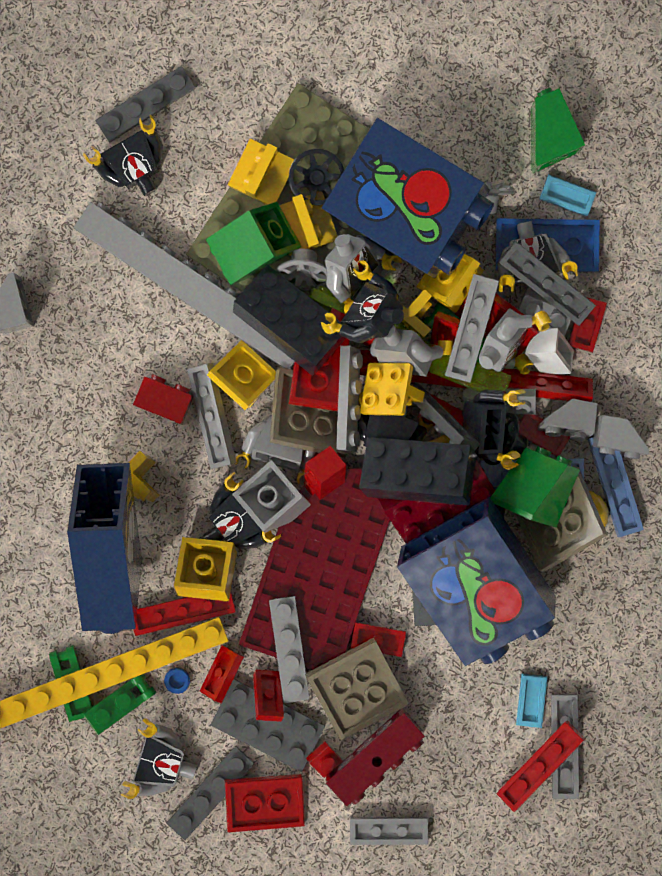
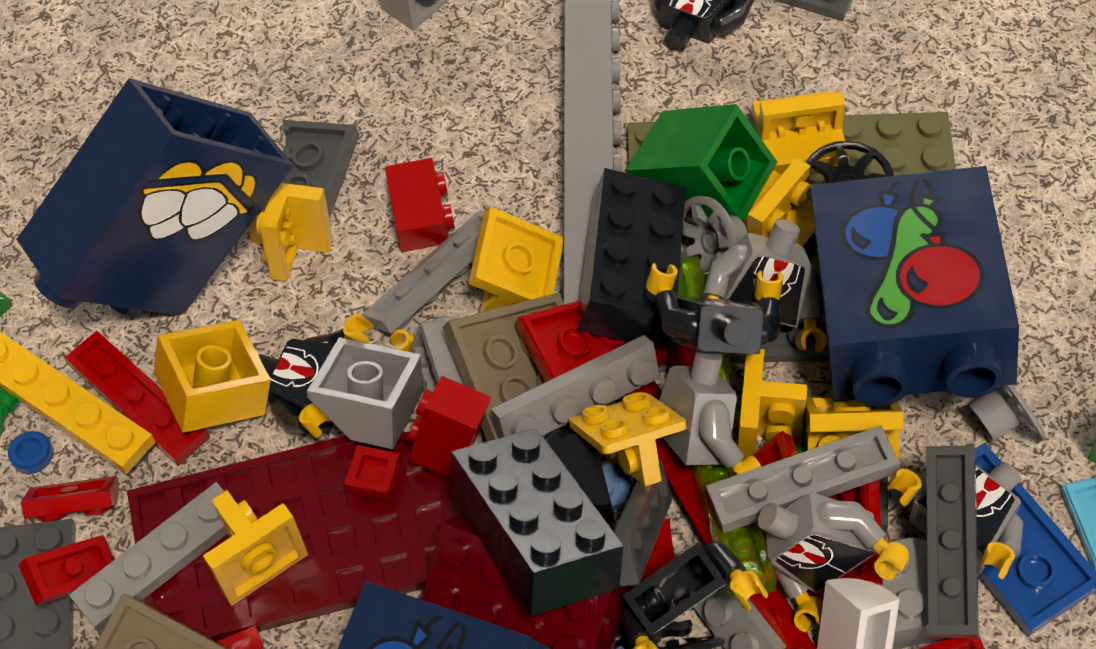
camera: 60 degrees right, 30 degrees down
(96, 437) = (319, 155): none -> dark grey wing
(314, 603) = (255, 547): none -> yellow bracket
(316, 521) = (373, 472): none -> red plate

